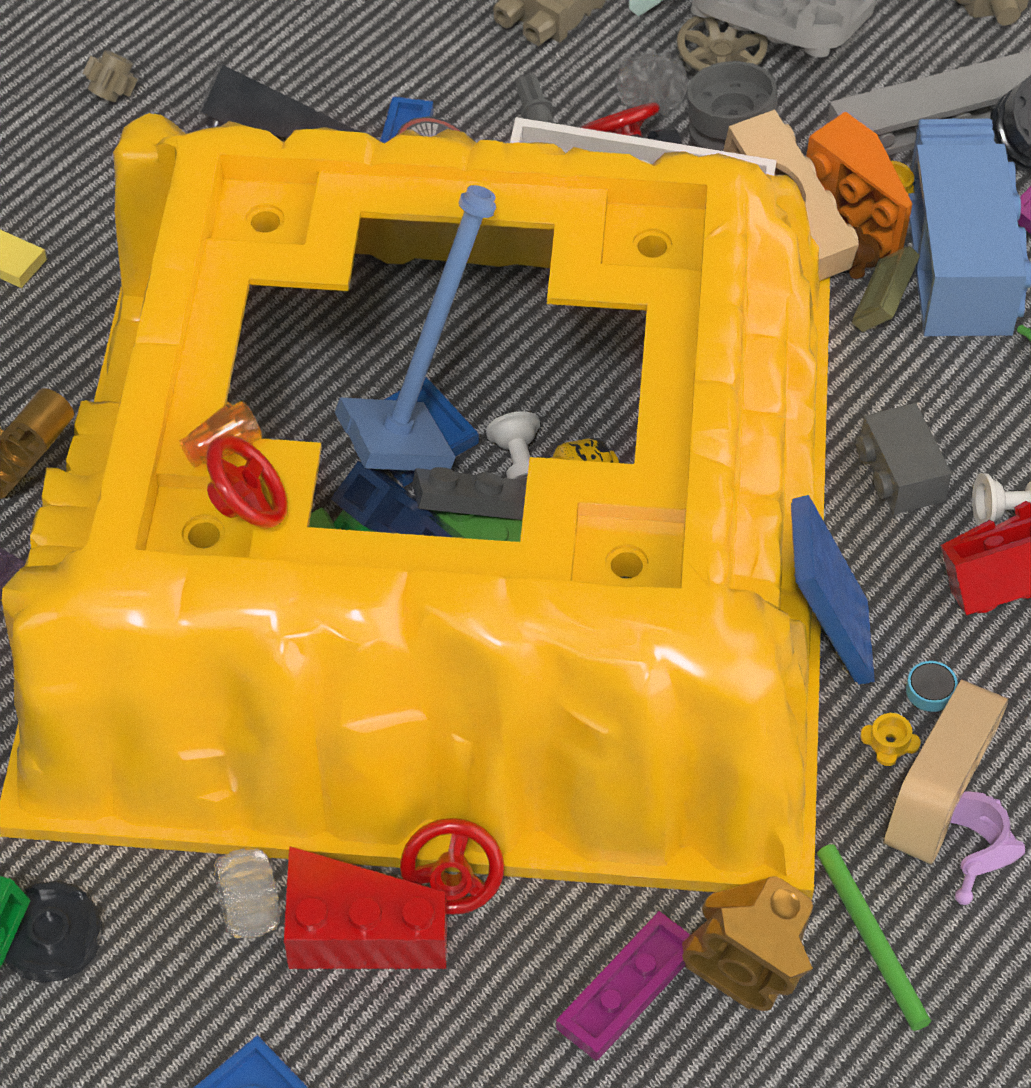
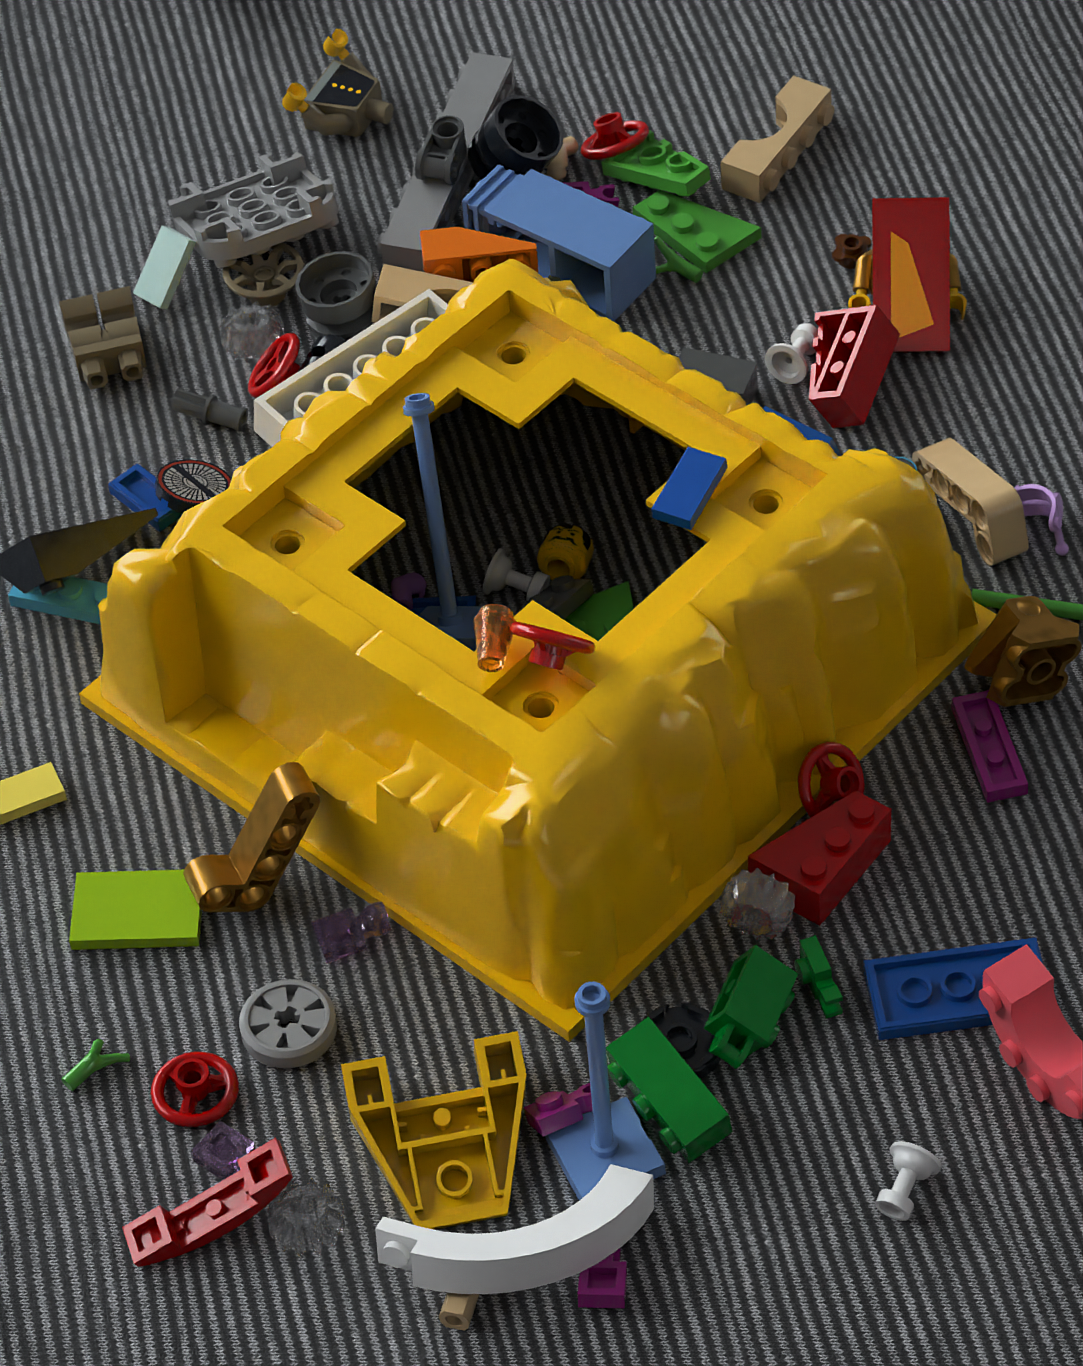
camera: 50 degrees left, 5 degrees down
(111, 966) = (750, 1006): none -> green brick
(205, 1001) = (816, 972): none -> green plate
(446, 375) = (407, 585): none -> medium lavender arm
(564, 481) = (689, 488): none -> blue tile
(977, 73) = (442, 150): none -> dark grey piece

